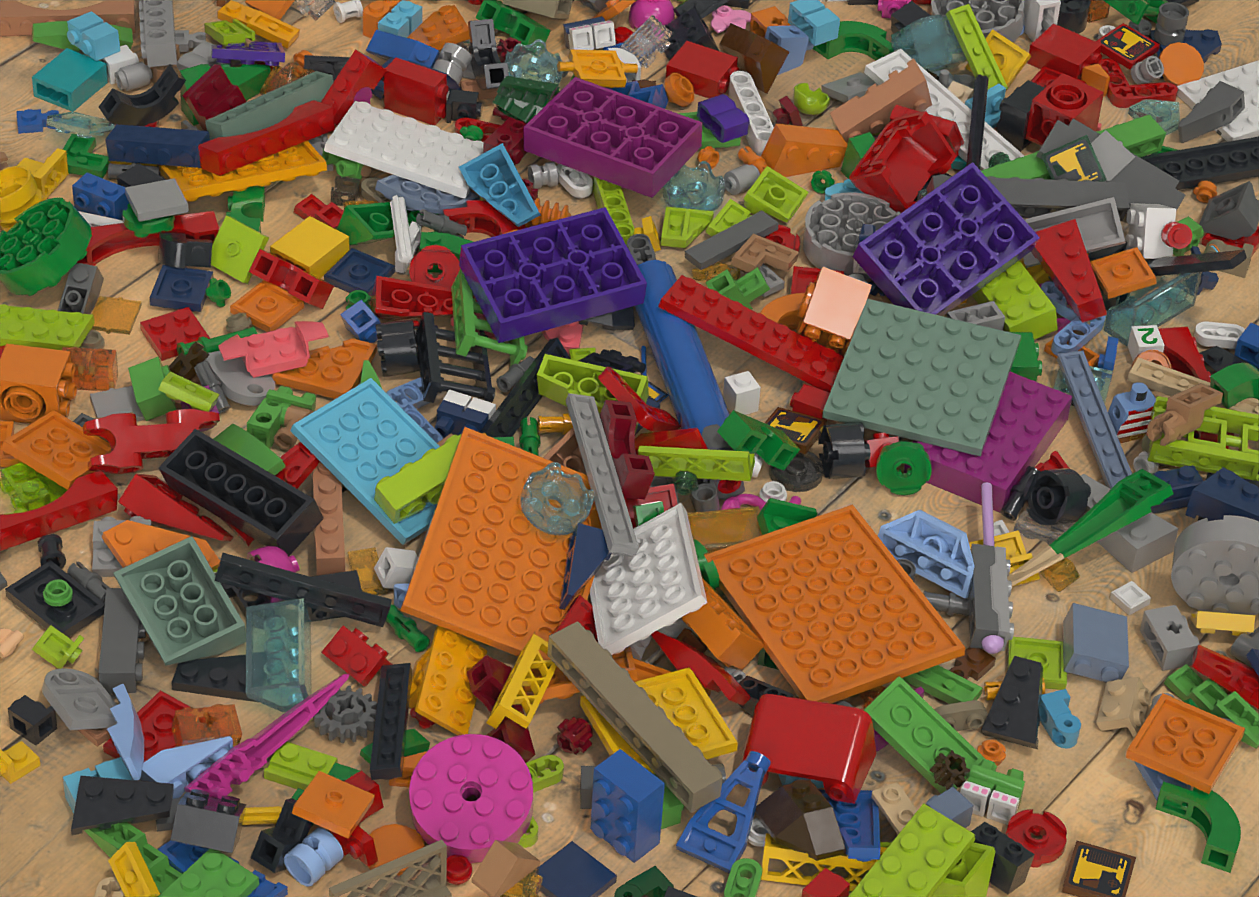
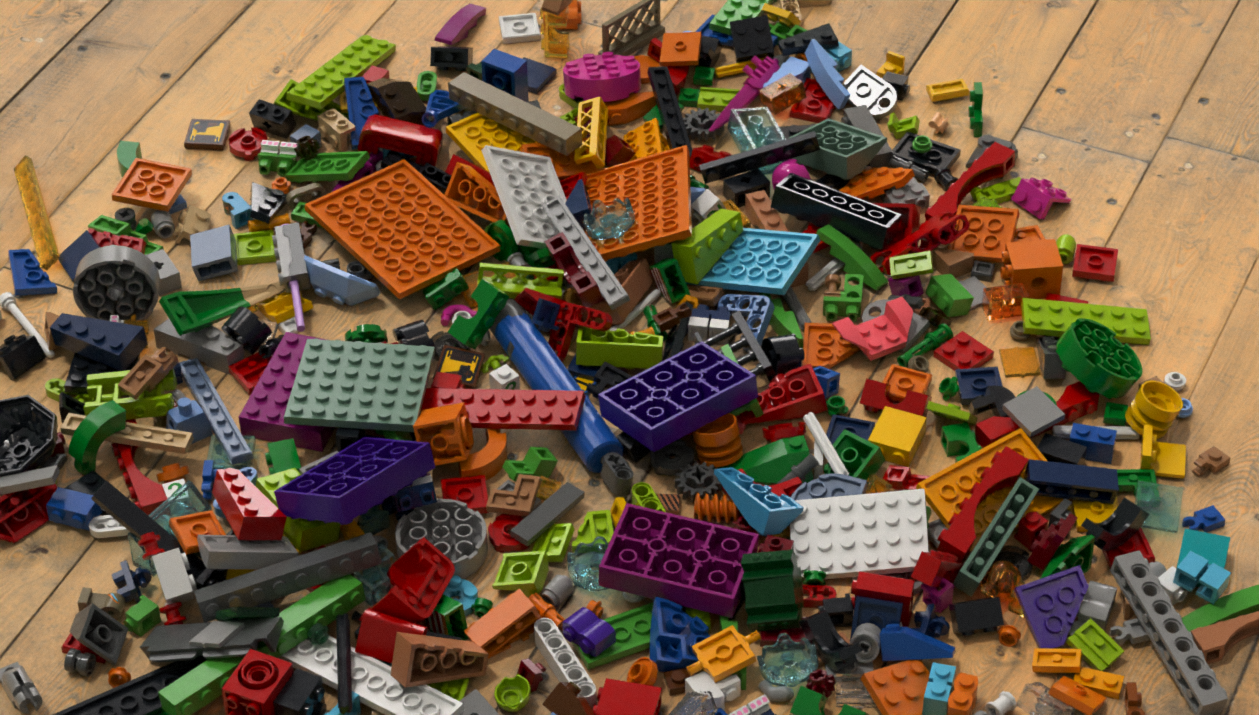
camera: 170 degrees right, 0 degrees up
(516, 410) = (670, 317): none -> reddish brown plate
(675, 414) = (546, 315): none -> dark blue bracket

